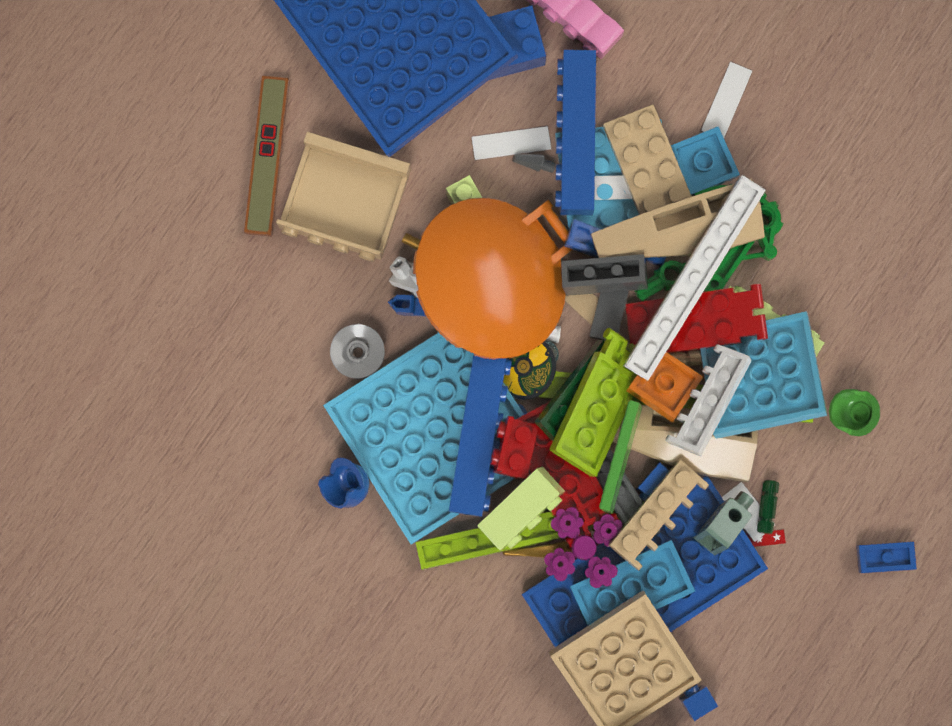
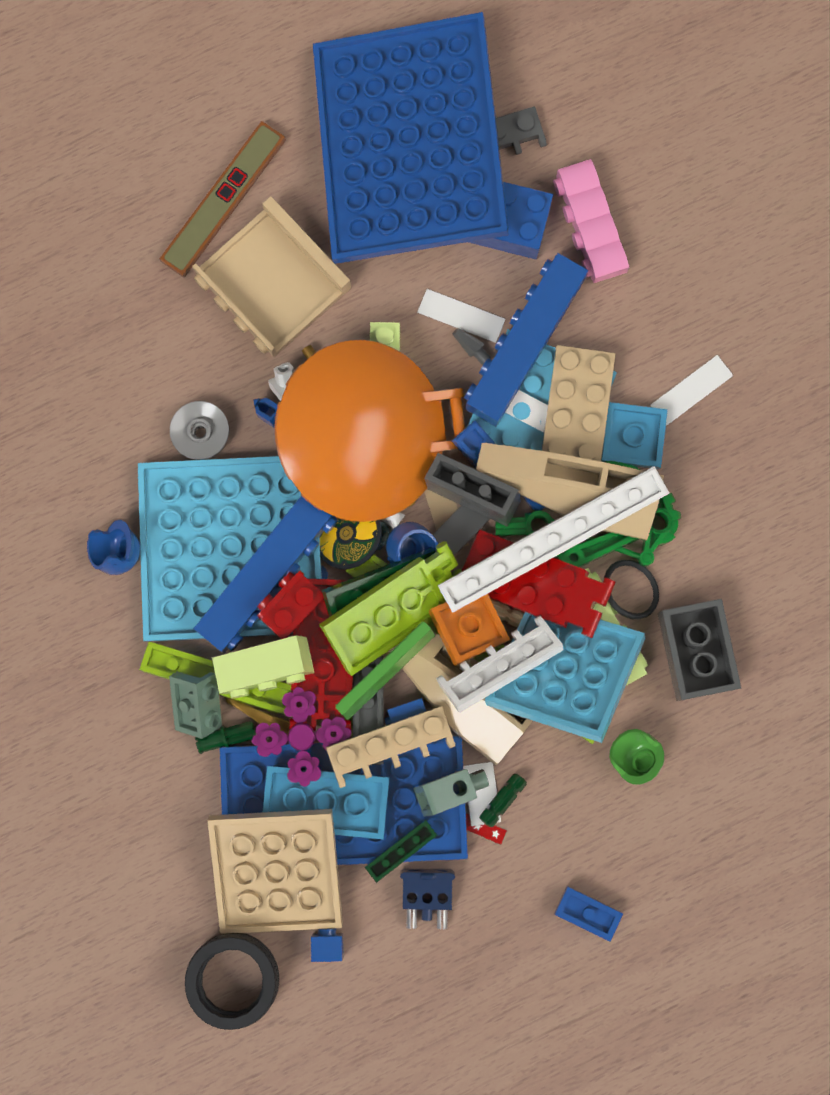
camera: 30 degrees right, 0 degrees up
(483, 570) = (195, 704): none -> sand green bracket
(520, 583) = (226, 736): none -> dark green axle
(576, 343) = (407, 540): none -> blue helmet
(713, 592) = (401, 851): none -> dark green piece
(744, 606) = (427, 881): none -> dark blue piece
(774, 263) = (616, 607): none -> black tyre
(853, 301) = (699, 650): none -> dark grey brick

